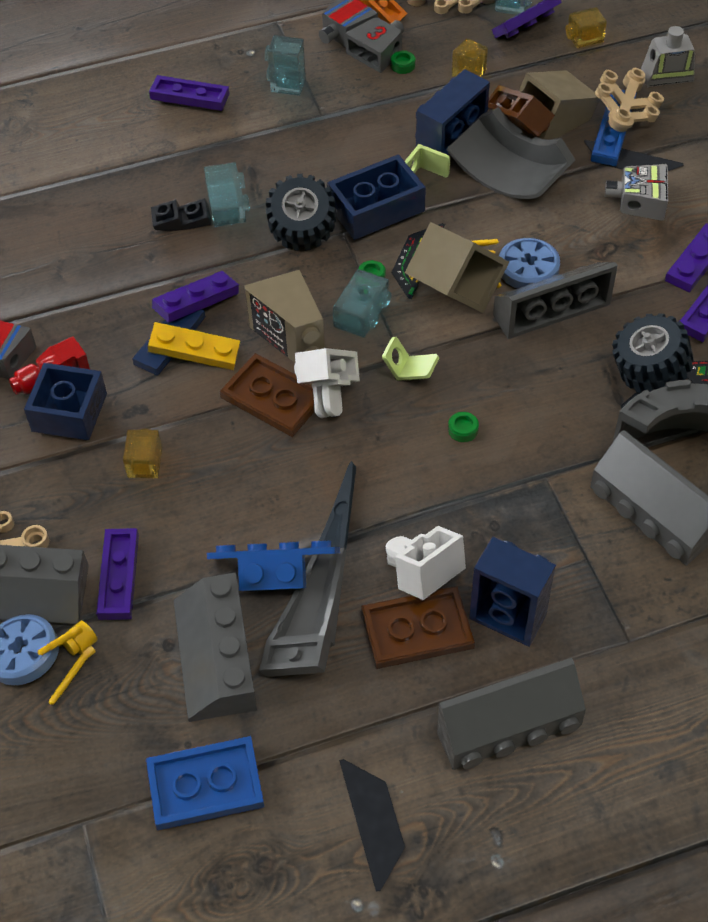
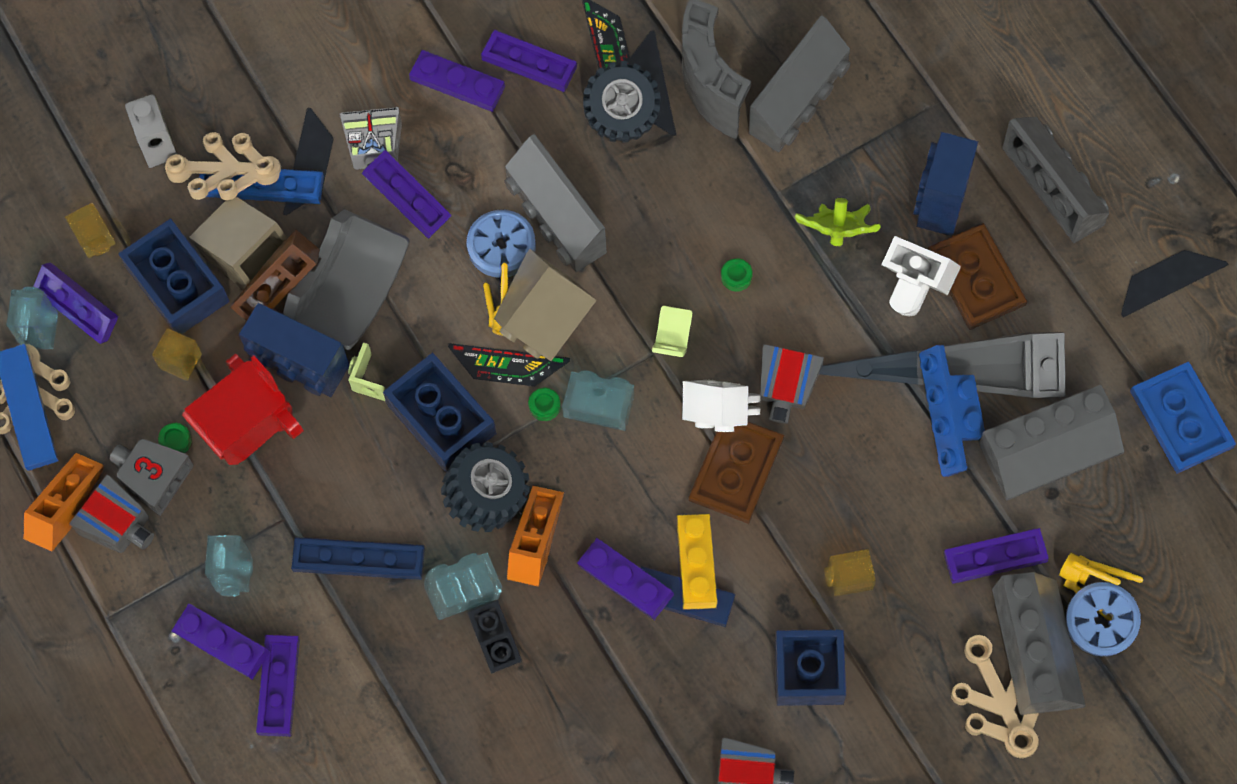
camera: 100 degrees left, 15 degrees up
(64, 353) = (758, 705): red piece -> none
(232, 65) = (220, 641): none -> dark purple plate
(253, 245) = (534, 536): none -> orange slope
(274, 149) = (358, 558): none -> dark blue tile
(285, 314) = (648, 460): dark tan slope -> none
(343, 437) = (787, 380): none -> torso
(403, 81) = (241, 411): none -> red piece
(496, 505) = (839, 222): none -> lime piece
(532, 52) = (174, 277): none -> dark blue brick
(583, 200) = (406, 194): none -> dark purple plate

